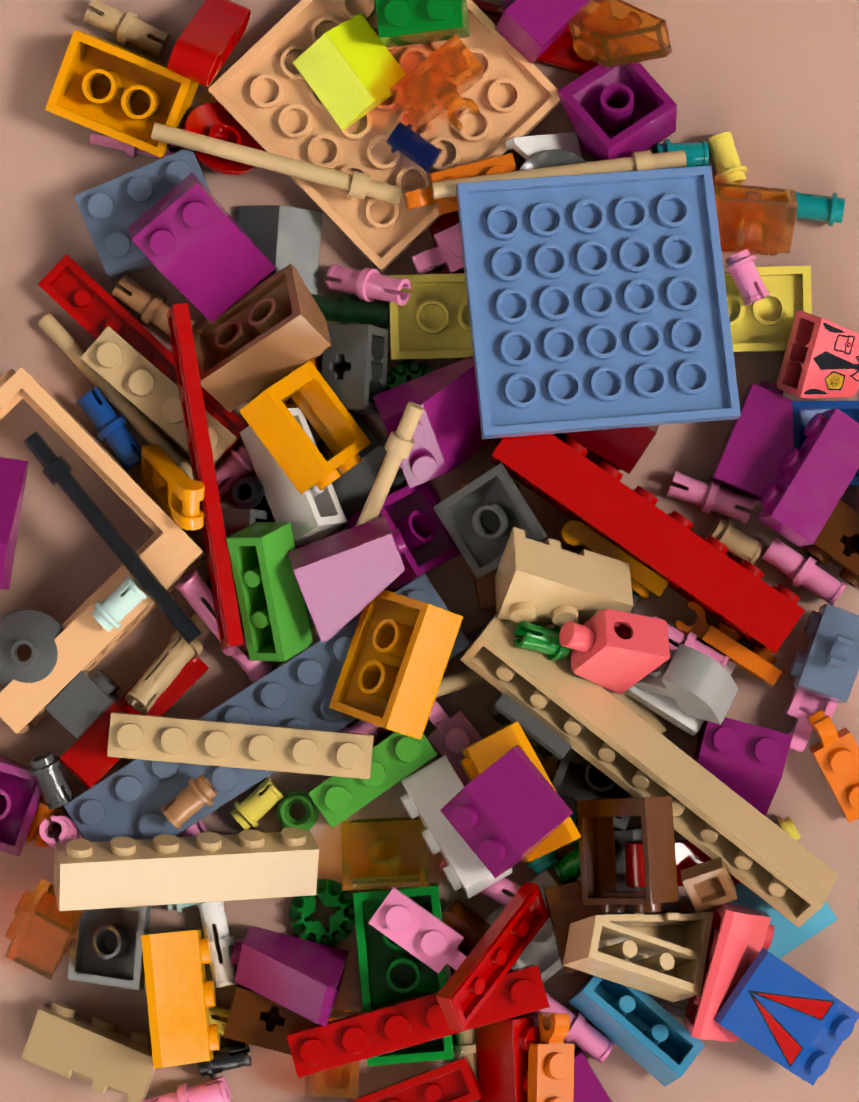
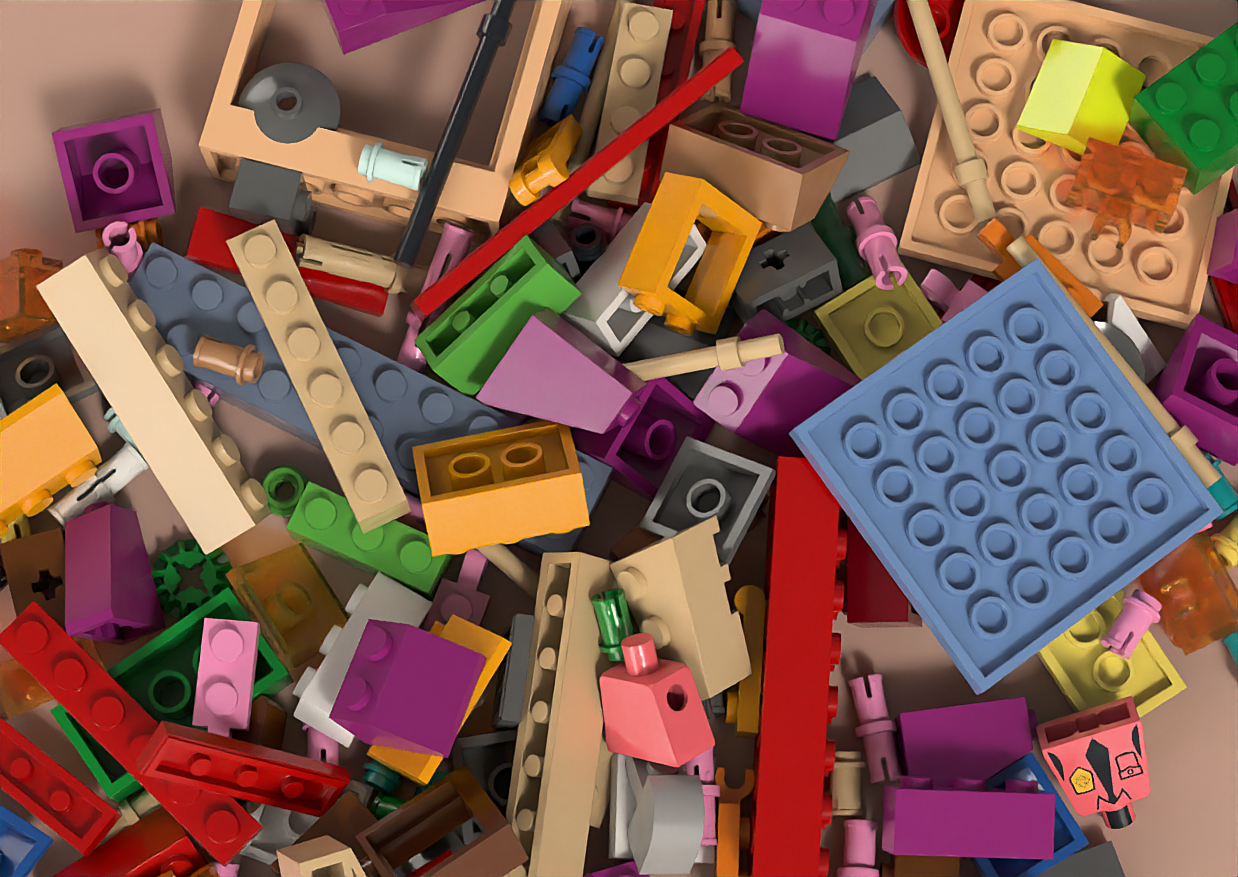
camera: 60 degrees right, 10 degrees down
(50, 779) = (172, 214): dark grey pin -> none
(257, 804) = (268, 444): light yellow pin -> none
(413, 146) = (1046, 196): clear blue pin -> none

